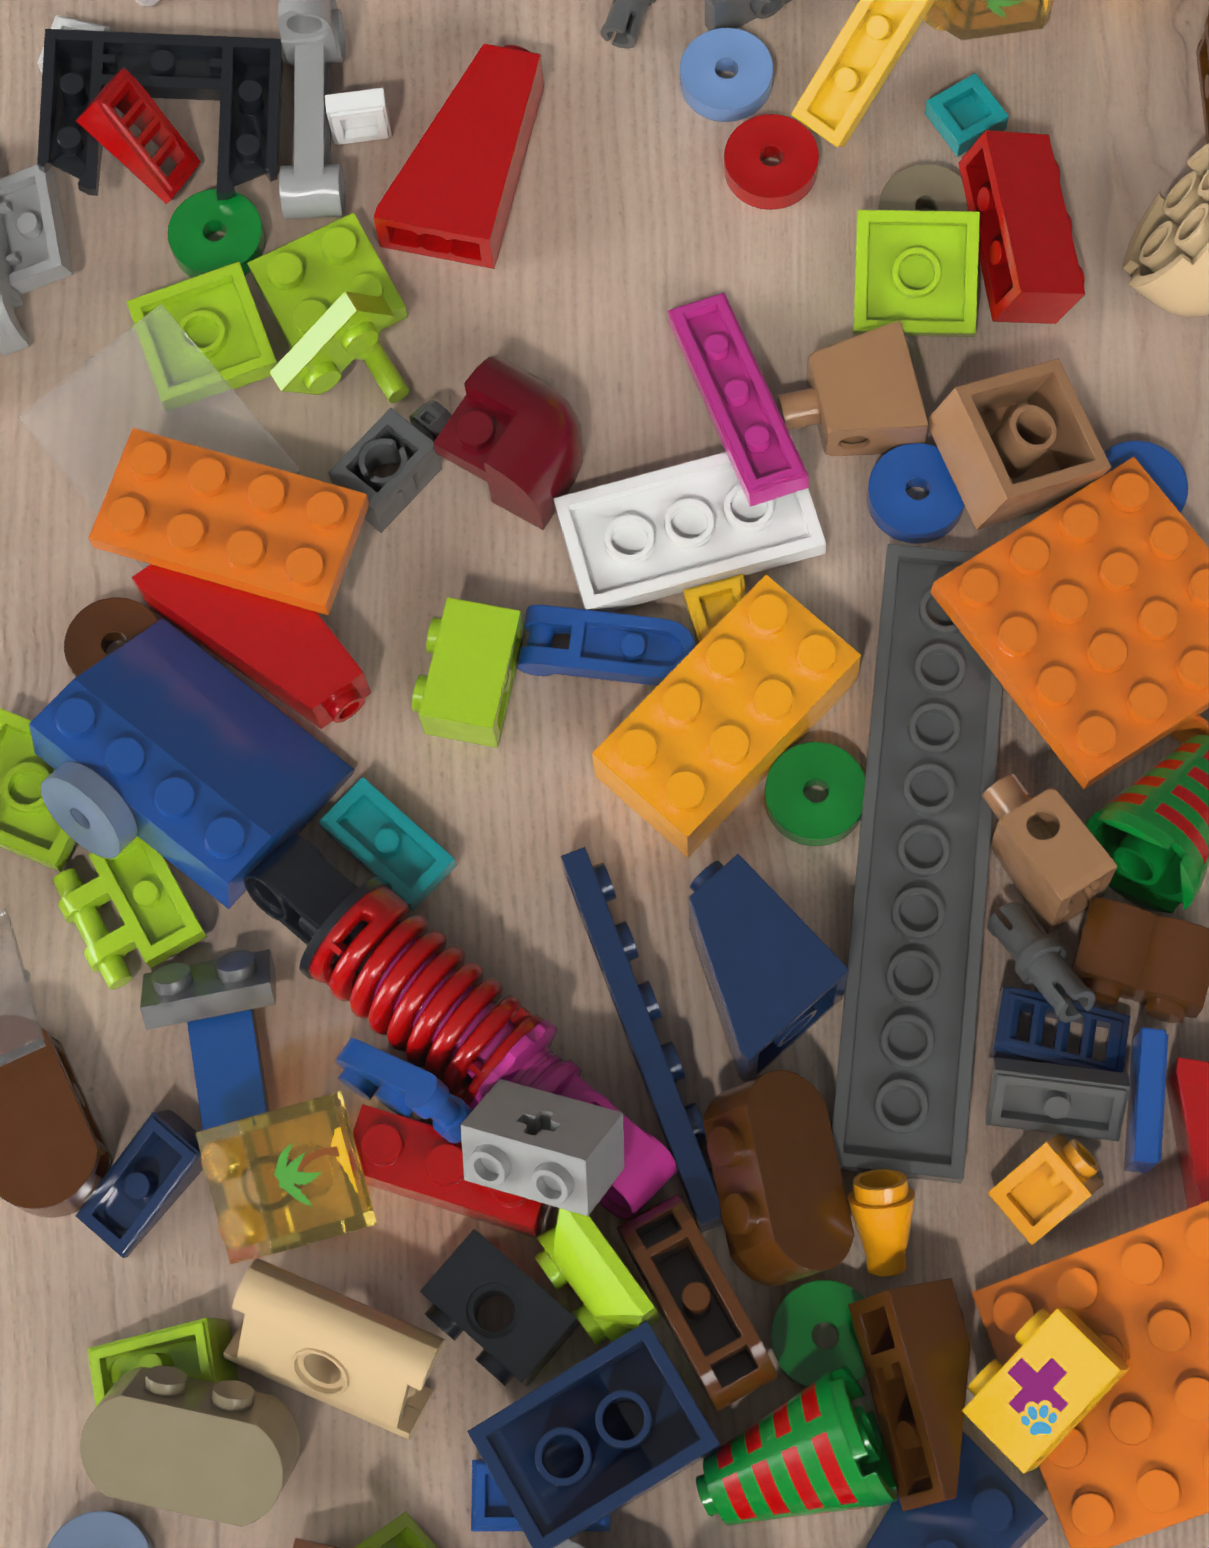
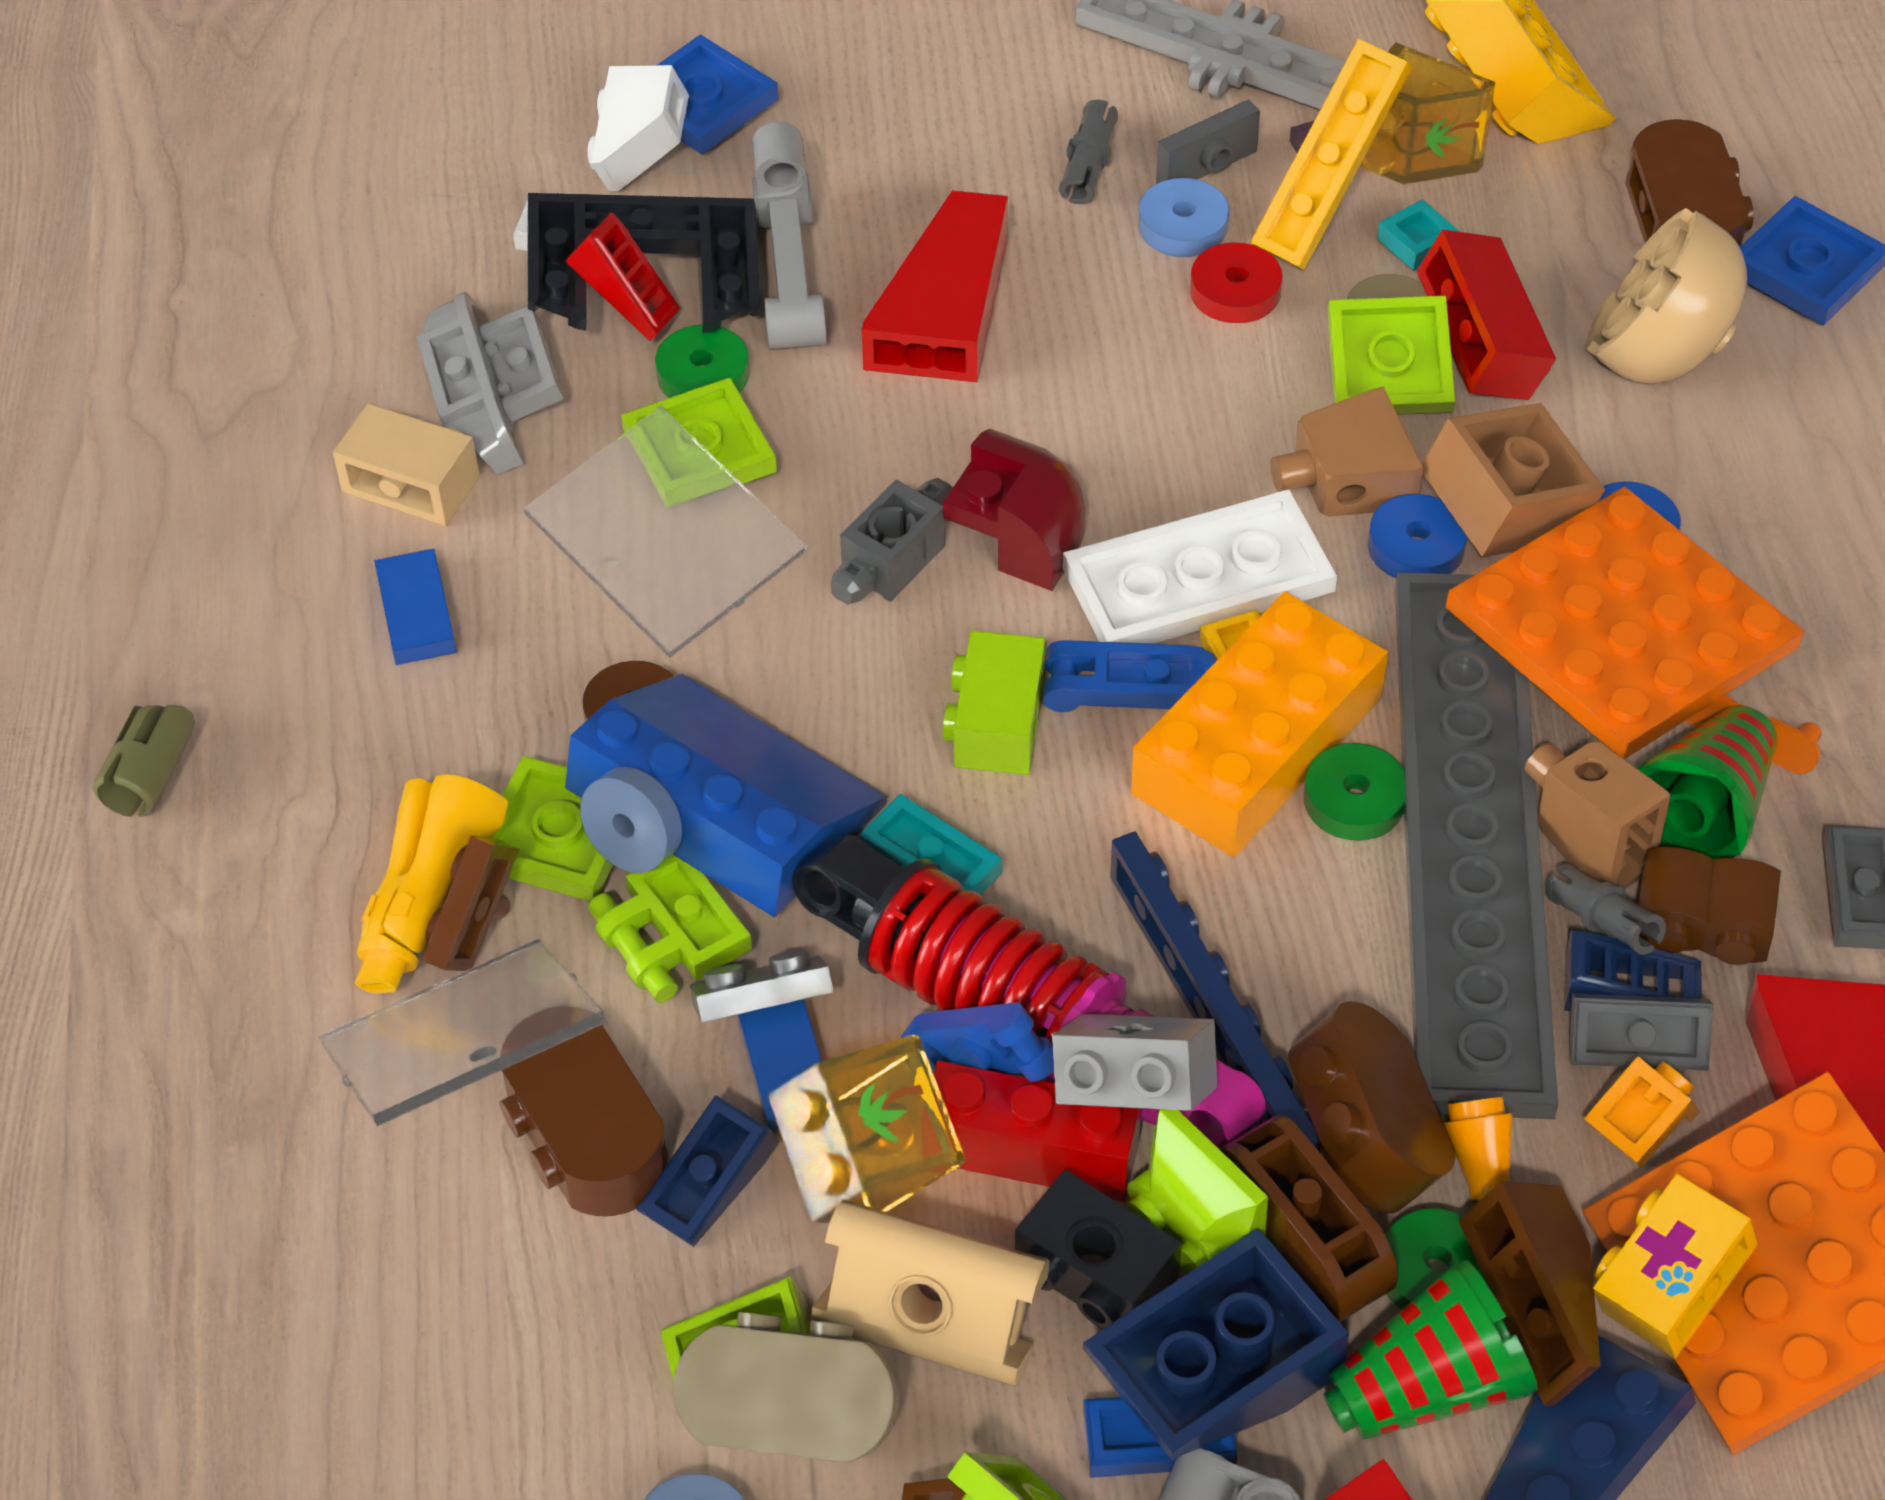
camera: 10 degrees left, 20 degrees down
(230, 521) = (748, 575): orange plate -> none
(265, 639) = (779, 669): red slope -> none
(315, 270) = (817, 403): lime plate -> none
(340, 335) = (839, 430): lime plate -> none
(358, 116) = (833, 259): white tile -> none
(738, 400) = (1233, 464): dark pink tile -> none
(760, 964) = (1326, 915): dark blue slope -> none
(1146, 1100) = (1731, 1027): blue tile -> none

